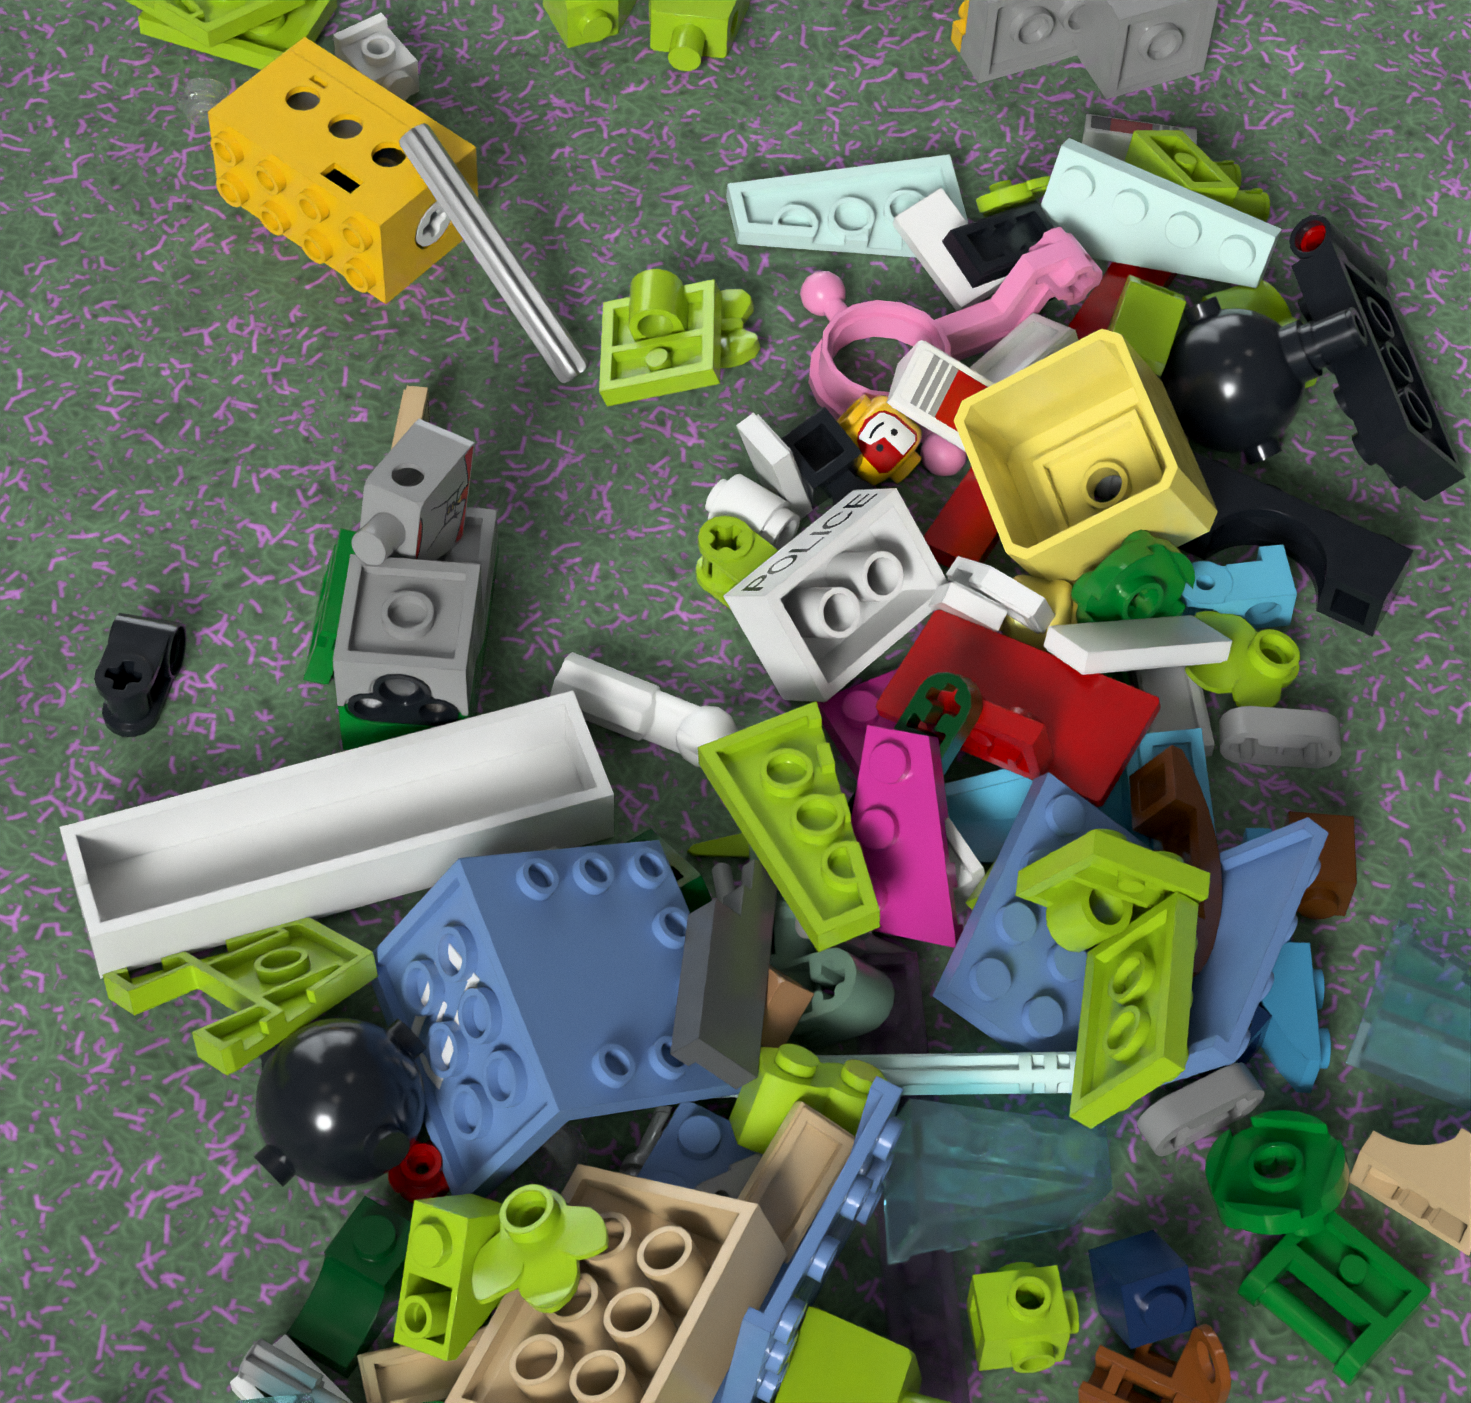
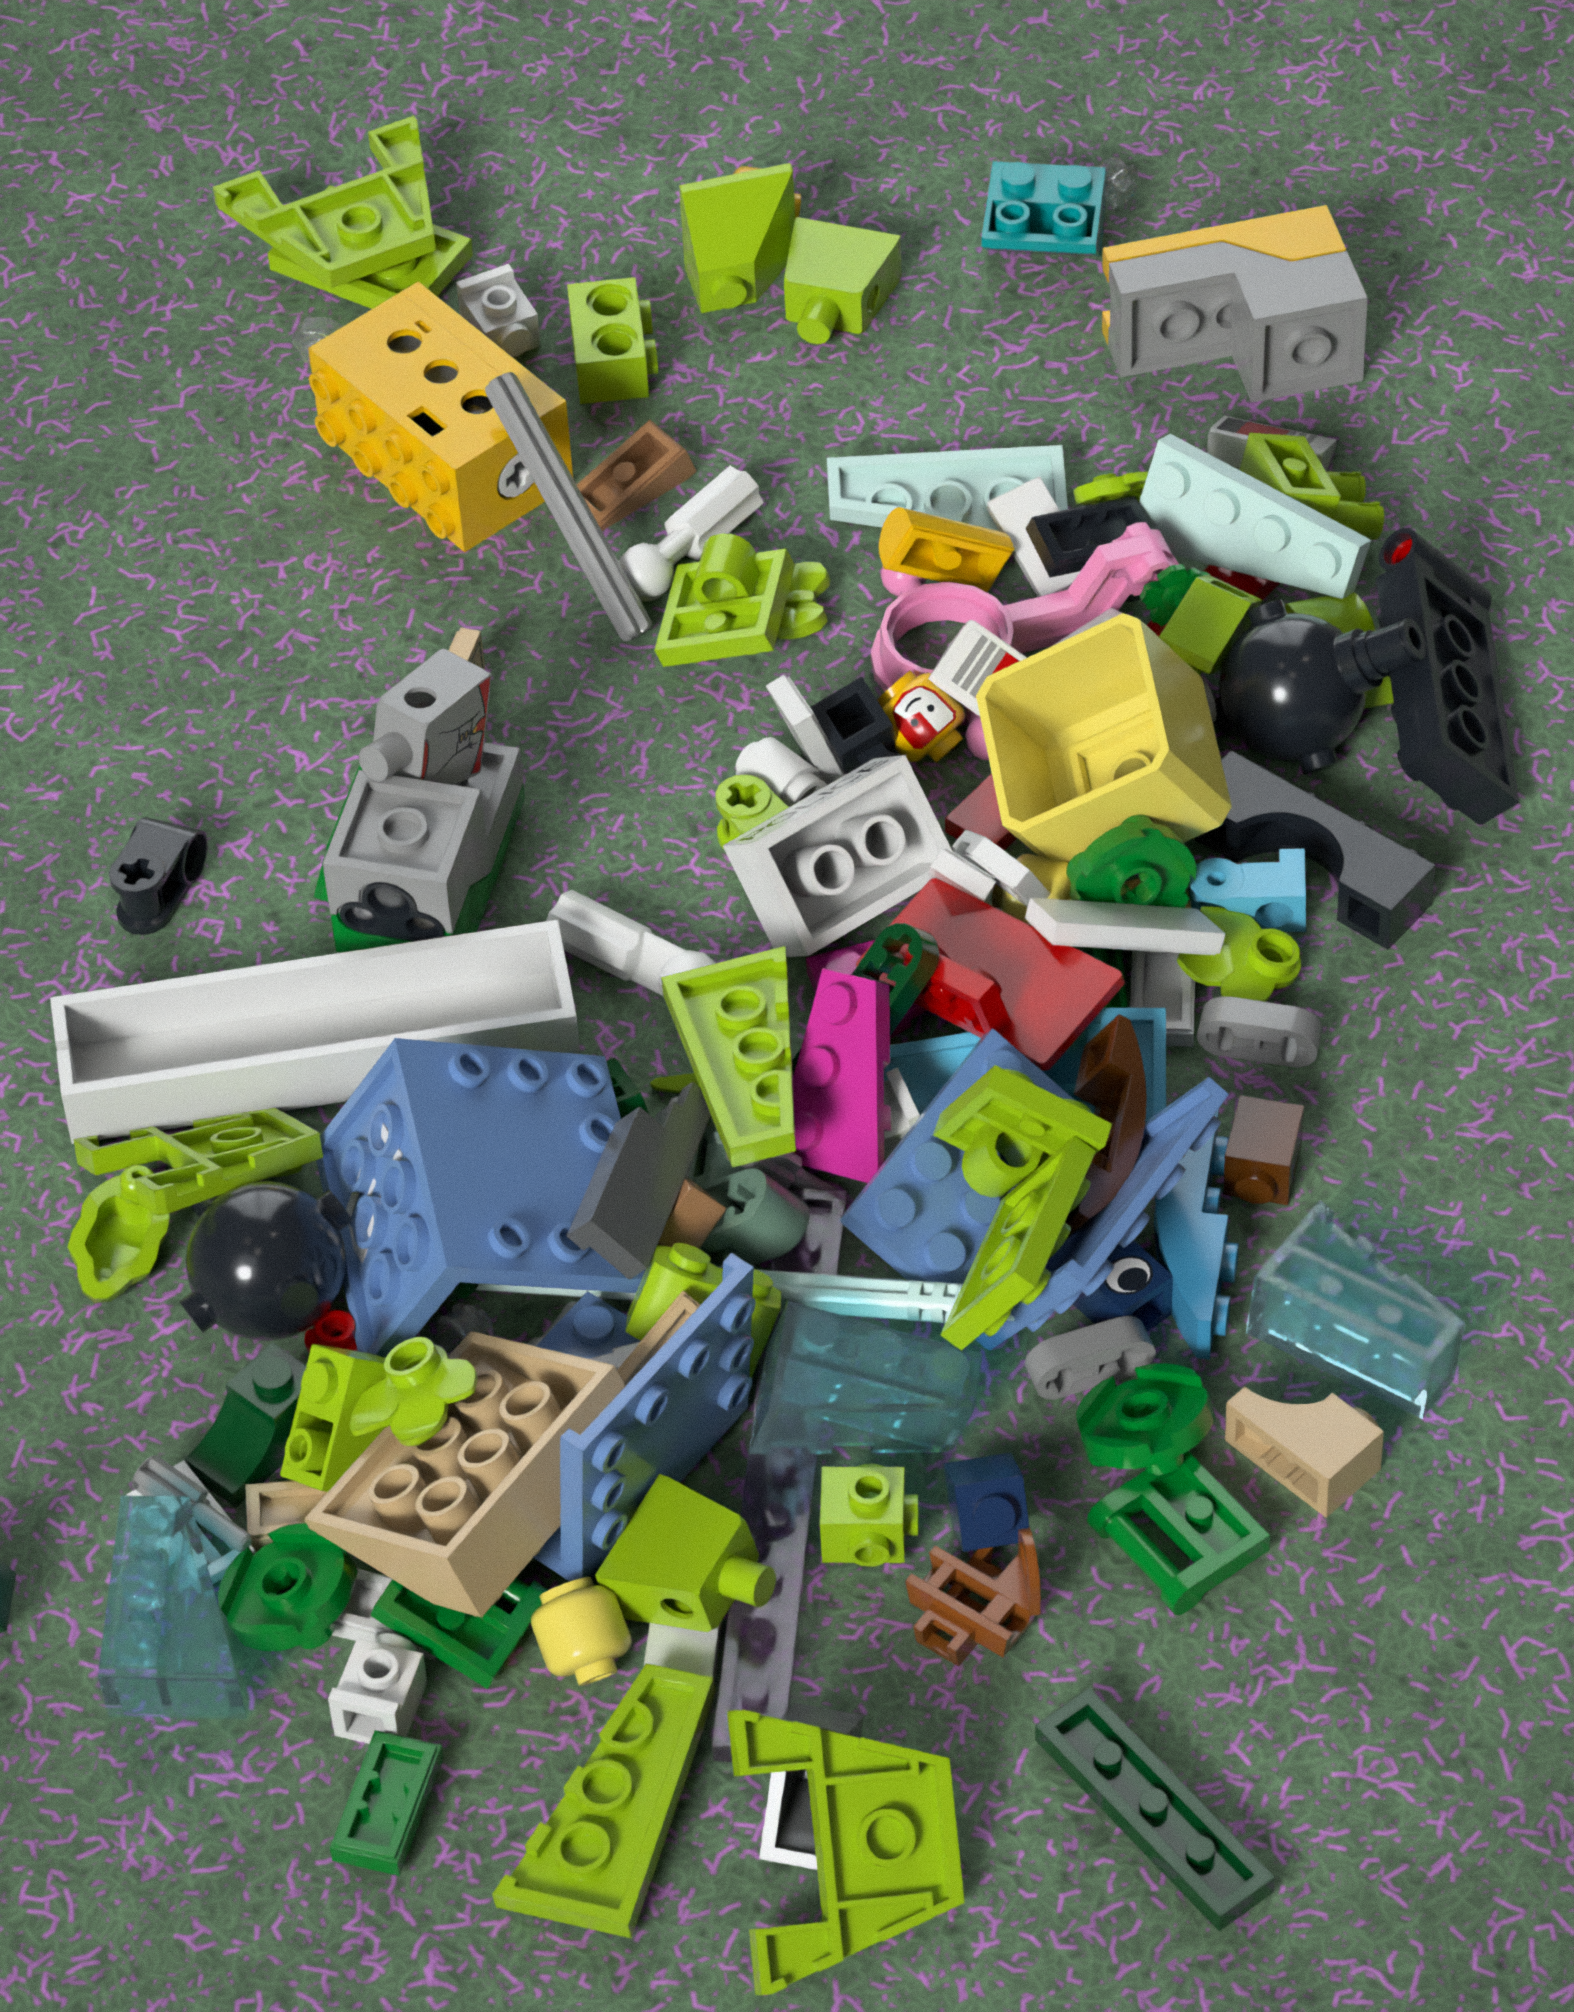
camera: 15 degrees right, 5 degrees down
(167, 1085) = (115, 1238): none -> lime arm
(491, 81) = (609, 340): none -> lime brick
(544, 210) = (635, 474): none -> medium nougat slope
(611, 266) = (712, 511): none -> white piece
(862, 266) = (942, 548): none -> yellow brick
(1098, 292) = (1166, 594): none -> green plant

